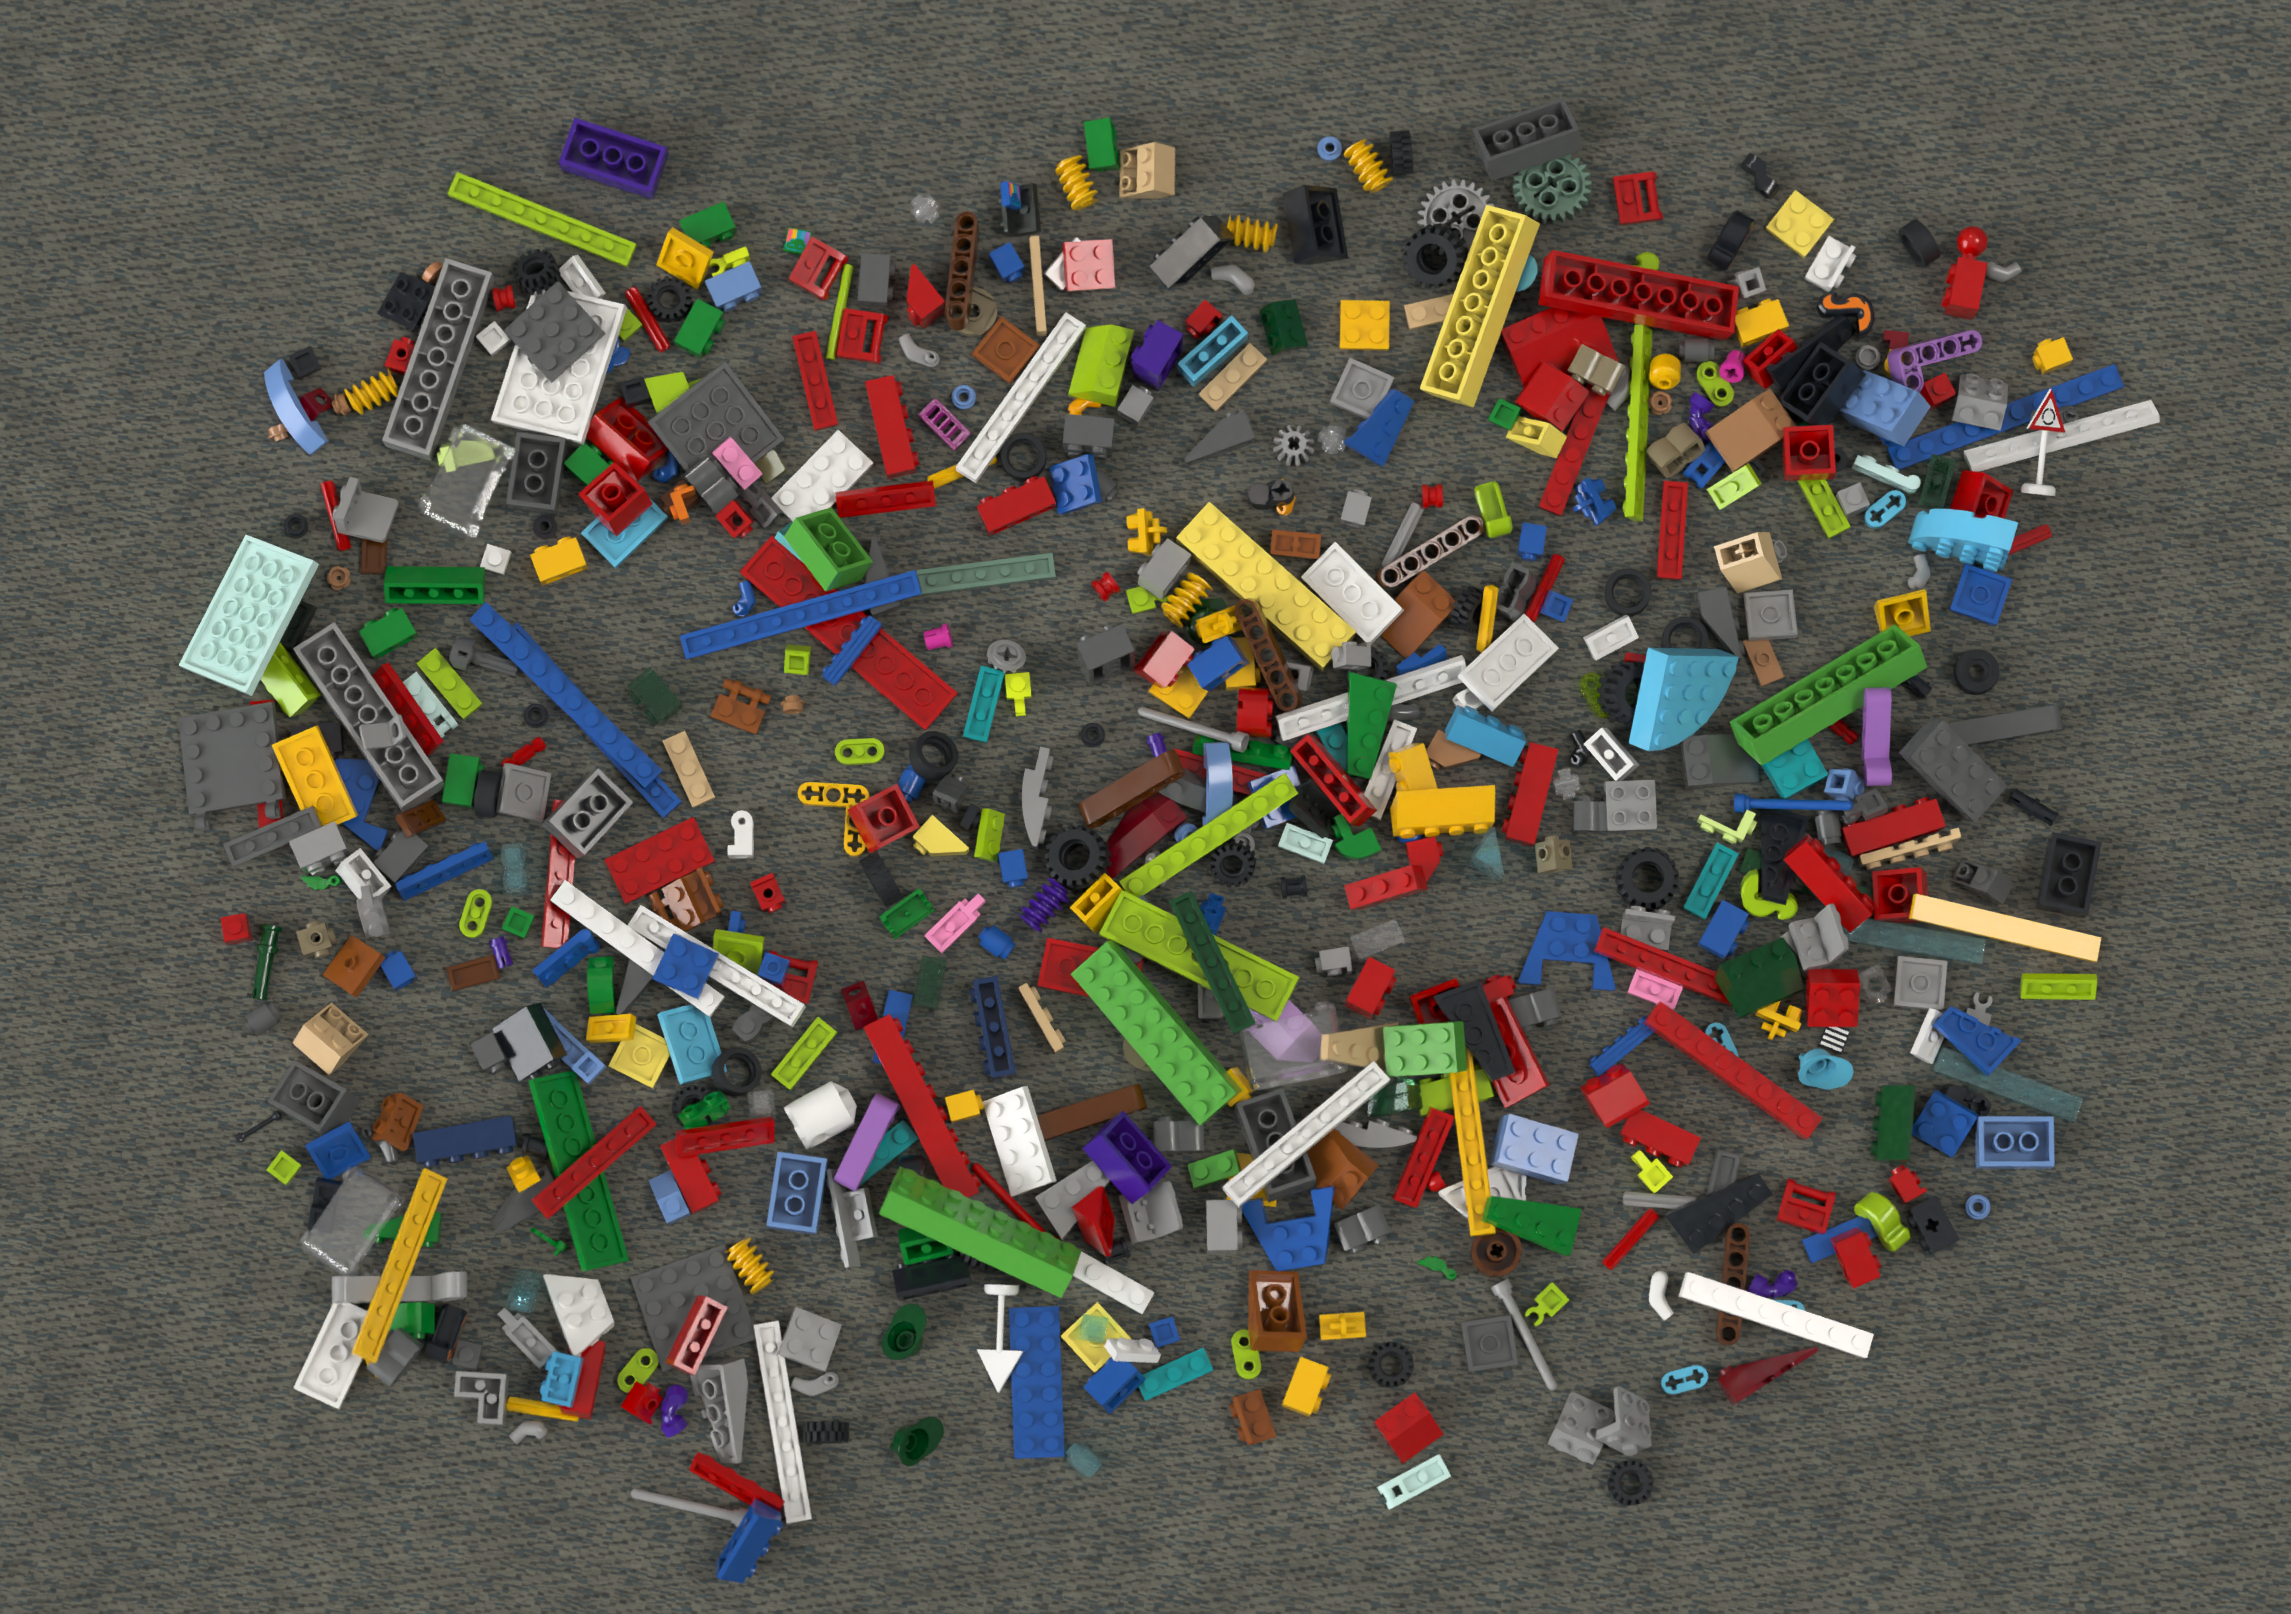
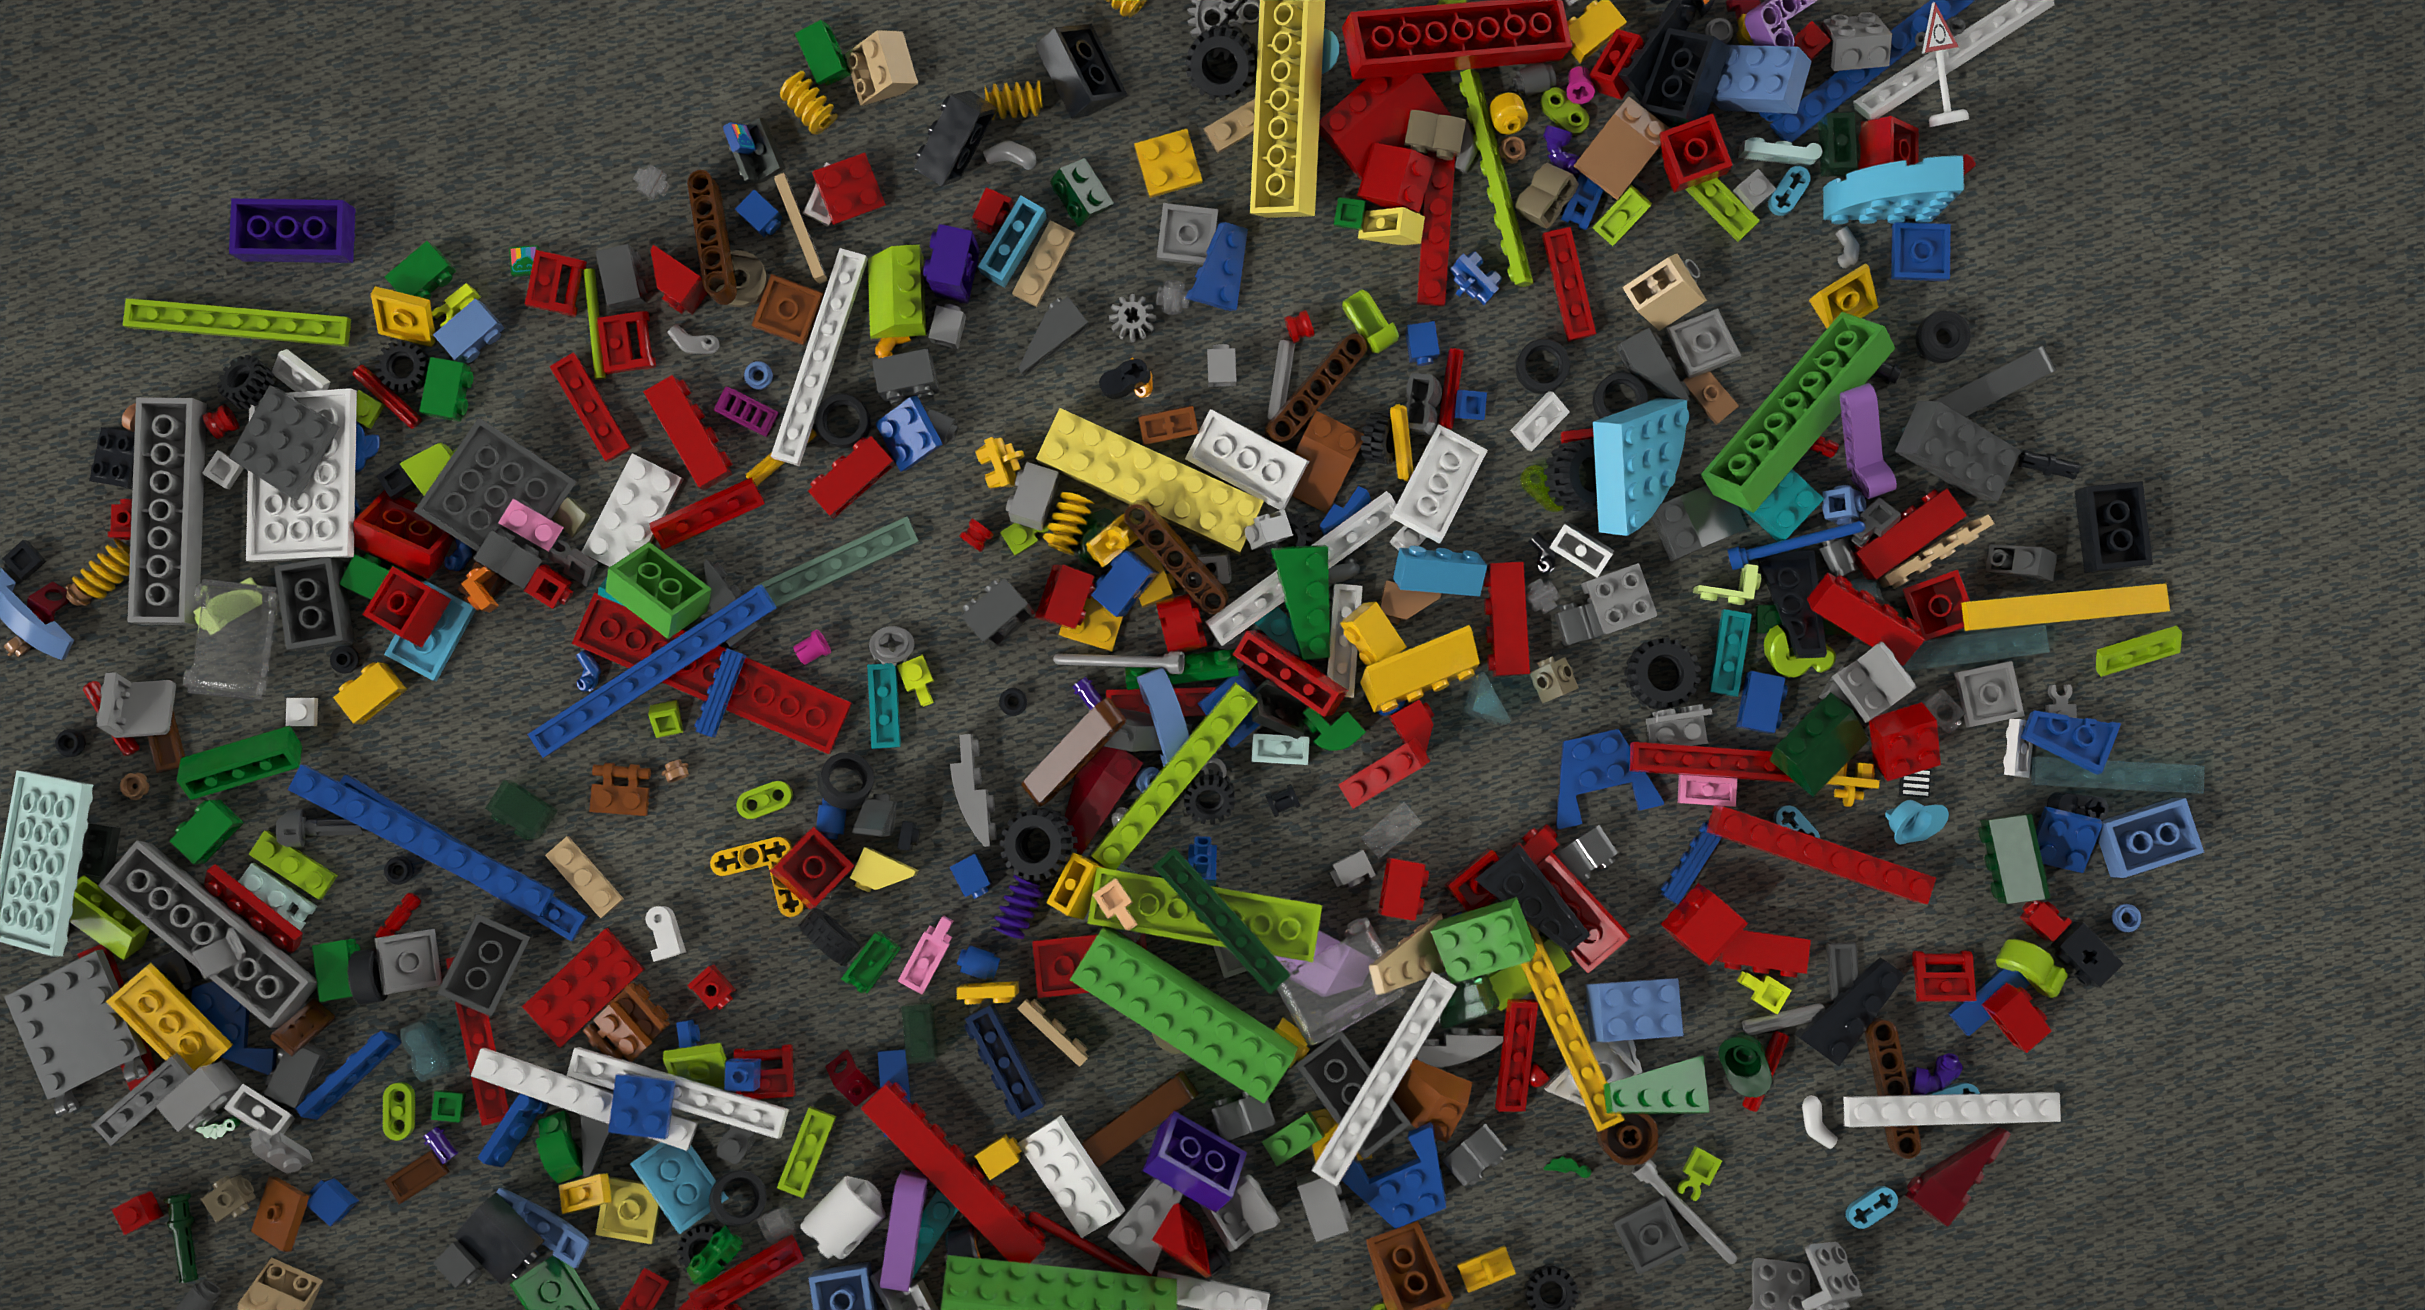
camera: 20 degrees left, 5 degrees up
(989, 835) = (934, 848): lime plate -> none
(1008, 968) = (976, 992): none -> yellow plate
(1128, 920) = (1113, 902): none -> light nougat plate
(1613, 1225) = (1745, 1065): none -> dark green piece

